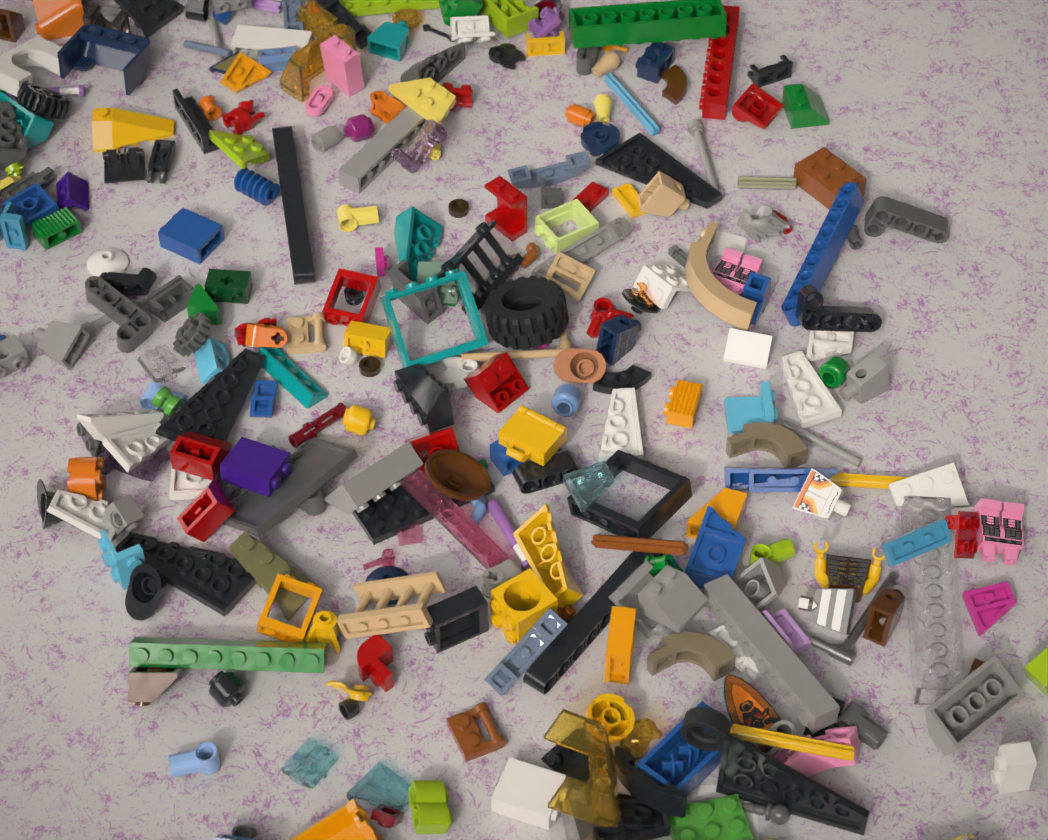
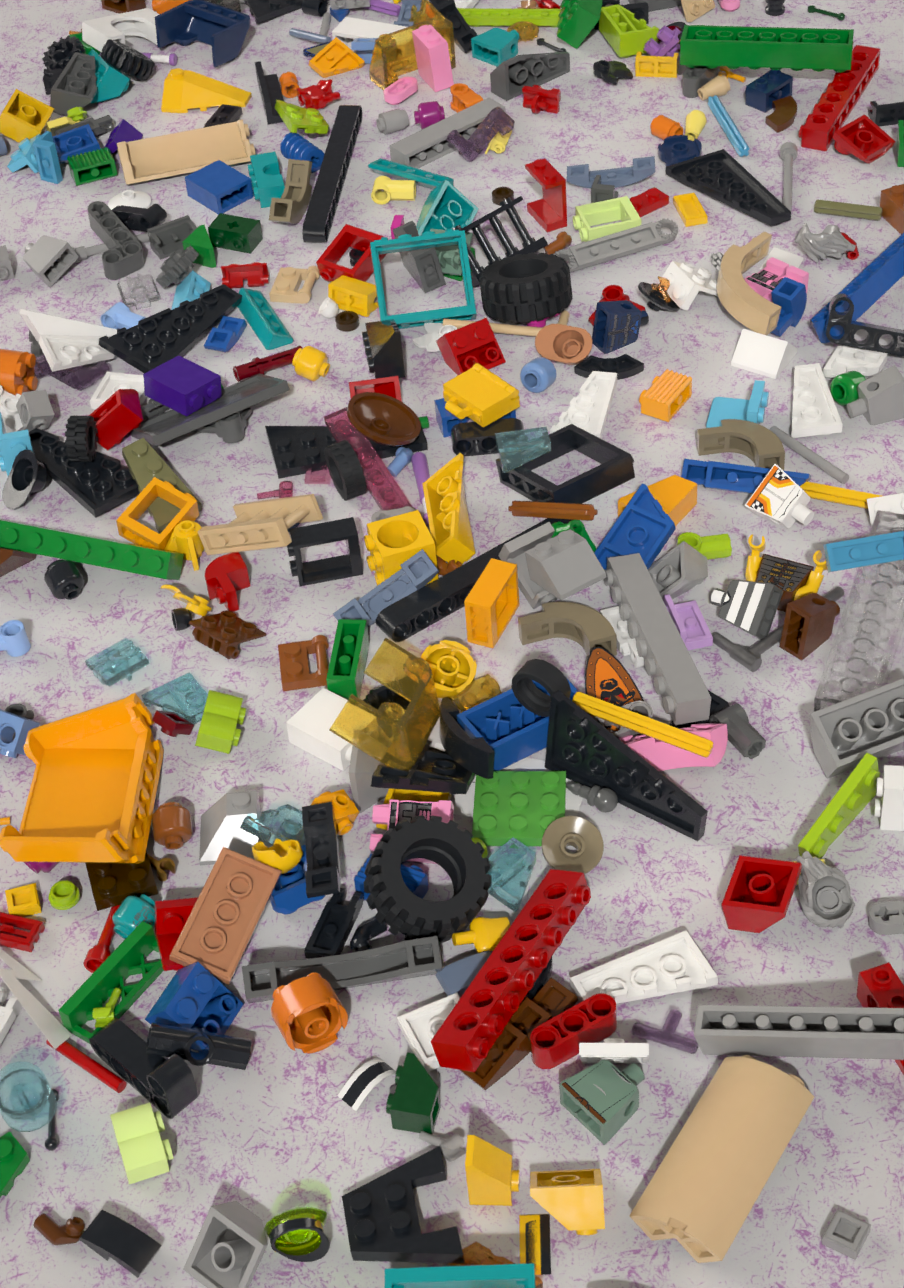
camera: 20 degrees right, 5 degrees down
(123, 166) = (180, 120): black hinge -> none
(141, 200) = (184, 151): none -> tan cylinder
(167, 401) = (120, 316): bright green wheel -> none
(188, 542) = (81, 438): none -> black tyre
(198, 454) = (126, 365): red slope -> none
(239, 230) = (265, 178): none -> teal arch
(261, 335) = (247, 277): orange piece -> none
(269, 240) = (296, 194): none -> dark tan arch
(369, 197) = (405, 172): none -> teal slope
(375, 480) = (296, 412): light grey slope -> none
(396, 712) = (224, 633): none -> reddish brown hinge
(425, 98) = (505, 92): light yellow wing -> none
(440, 532) = (345, 470): none -> black tyre
(470, 28) = (582, 43): white bracket -> none
(518, 724) = (348, 658): none -> green brick
(571, 271) = (593, 260): tan plate -> none
(662, 196) = (722, 204): tan torso -> none
(975, 778) = (843, 808): none -> lime wing

